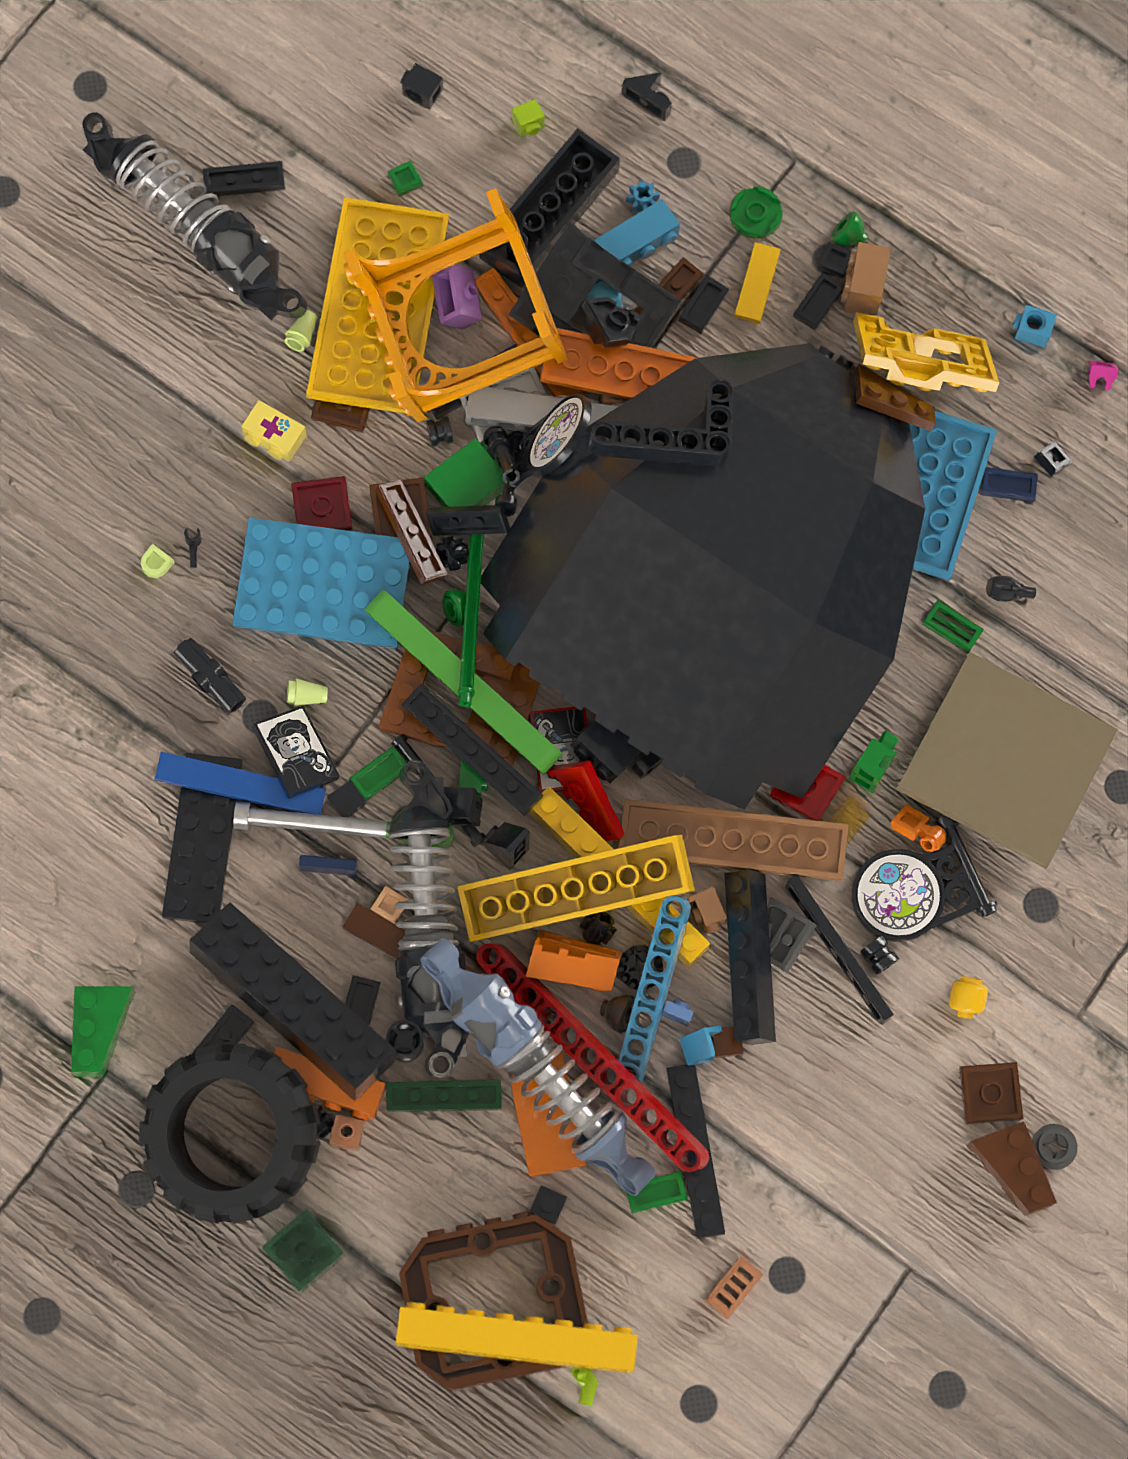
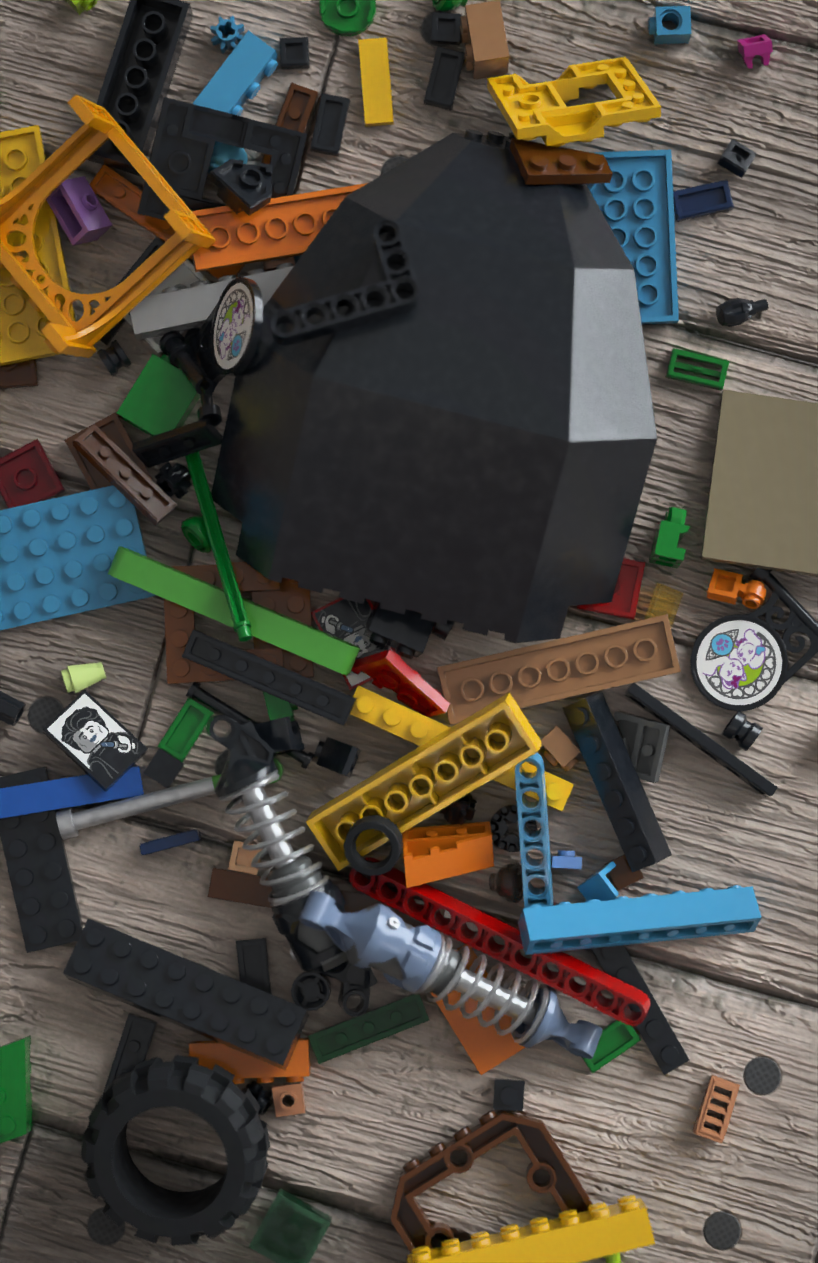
camera: 10 degrees left, 10 degrees up
(531, 922) = (361, 864): none -> black tyre
(695, 234) = (294, 53): none -> black tile
(725, 1083) = (638, 919): none -> dark azure brick

